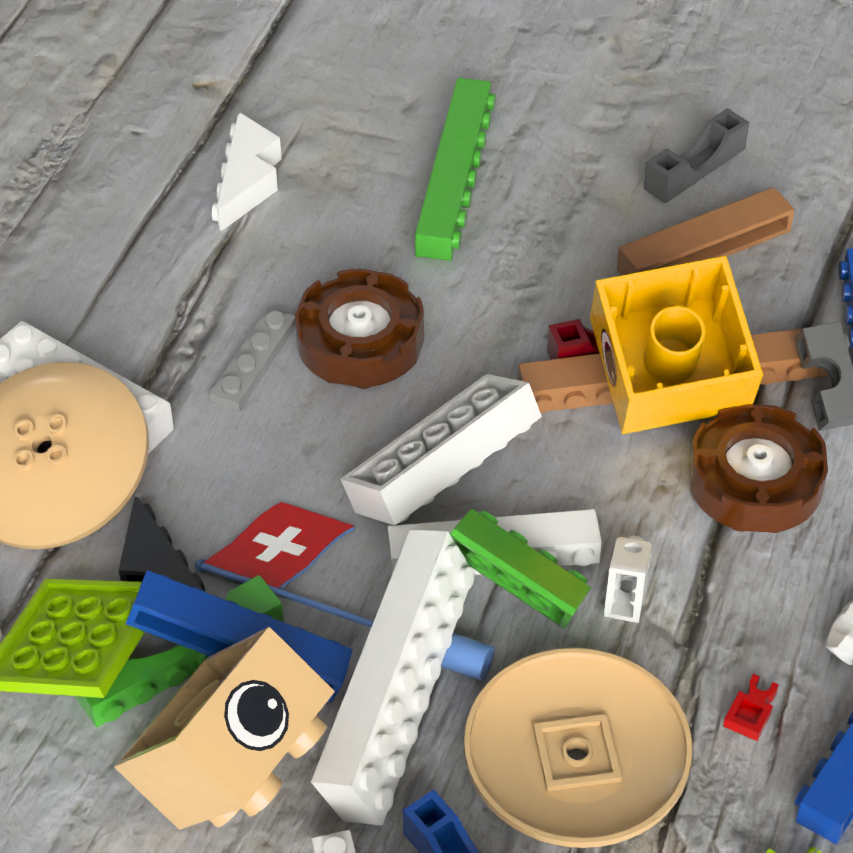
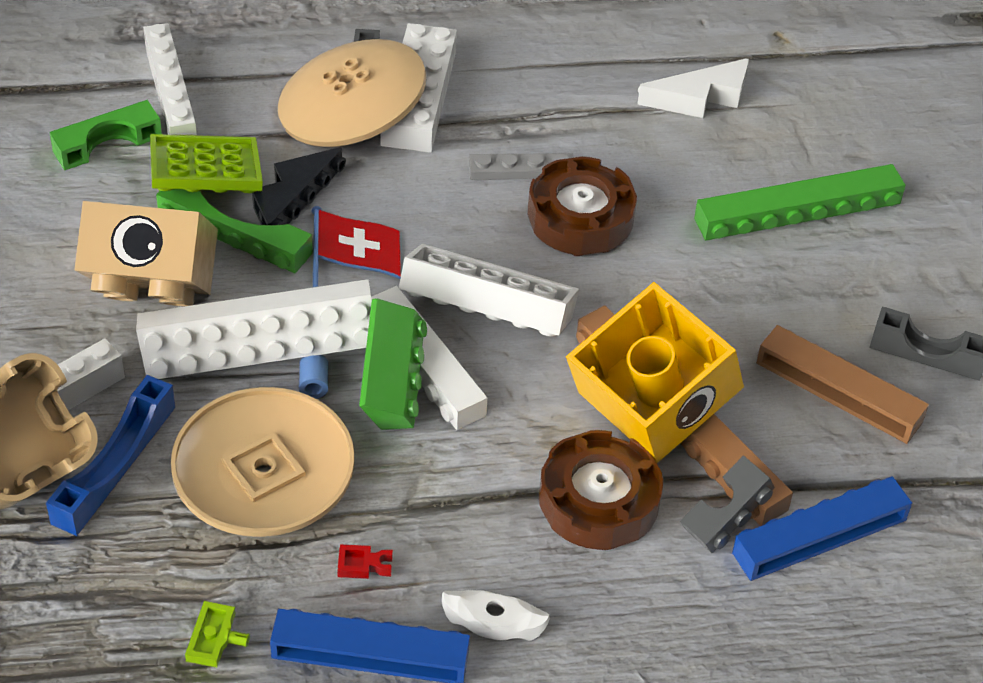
camera: 60 degrees right, 0 degrees up
(212, 624) = (243, 227): blue brick -> none
(629, 563) = (439, 441): white torso -> none

